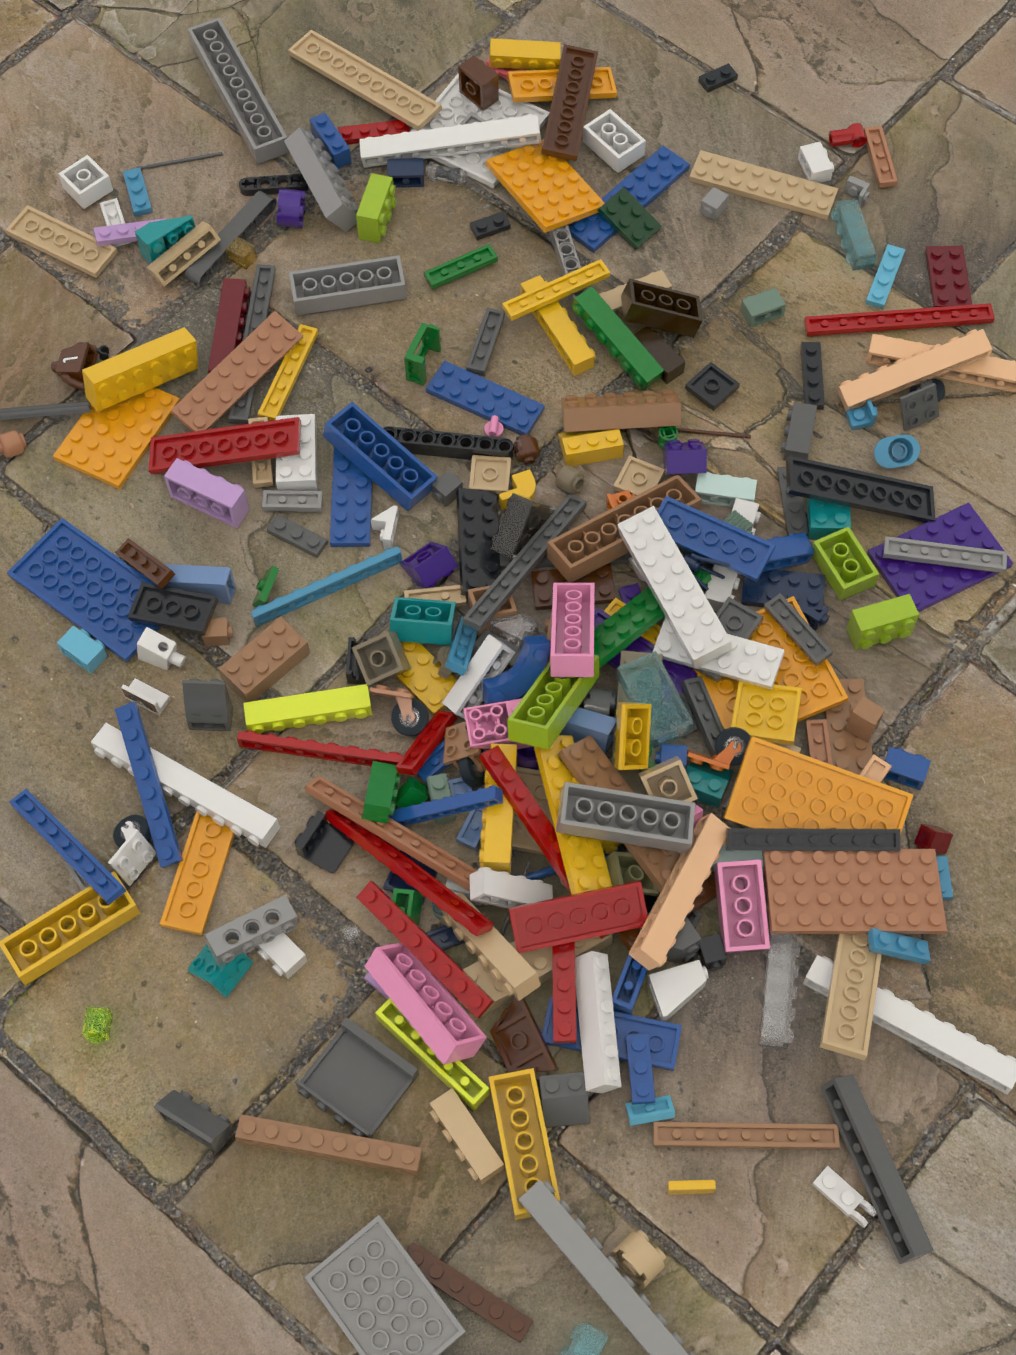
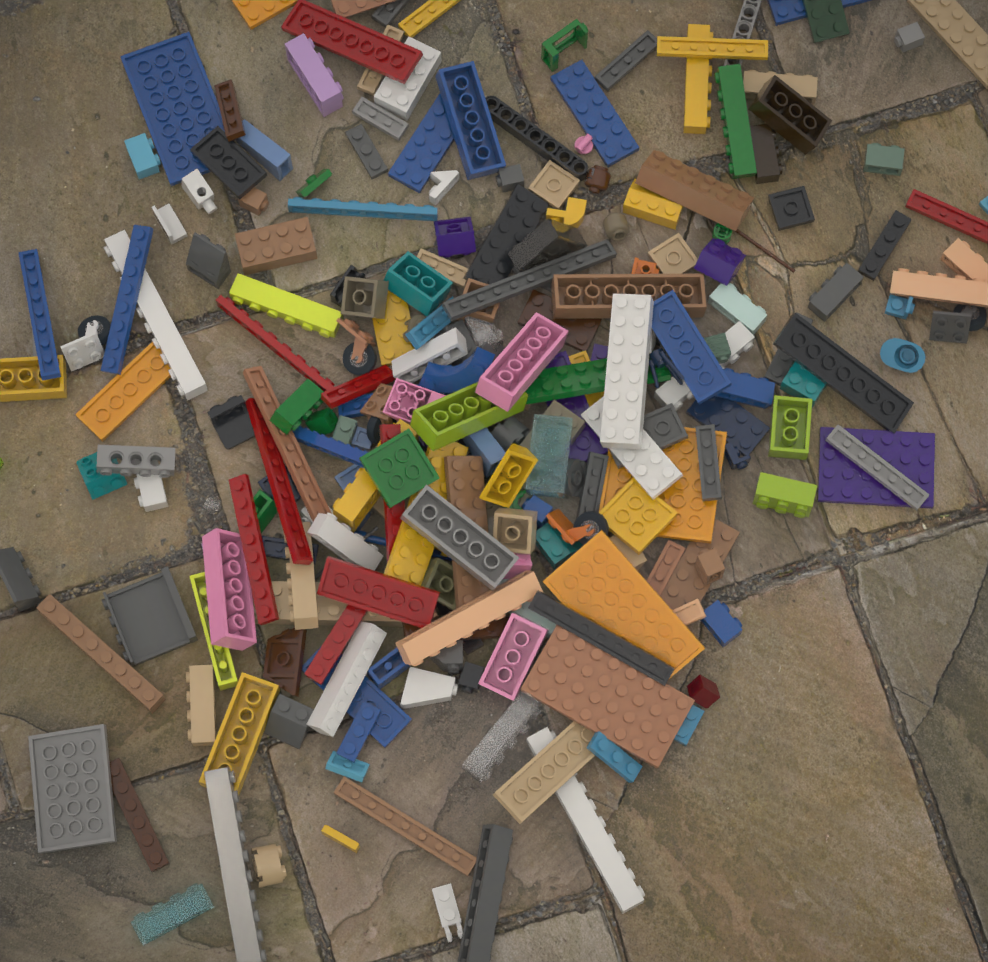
camera: 30 degrees right, 10 degrees up
(525, 784) = (399, 468): none -> green plate

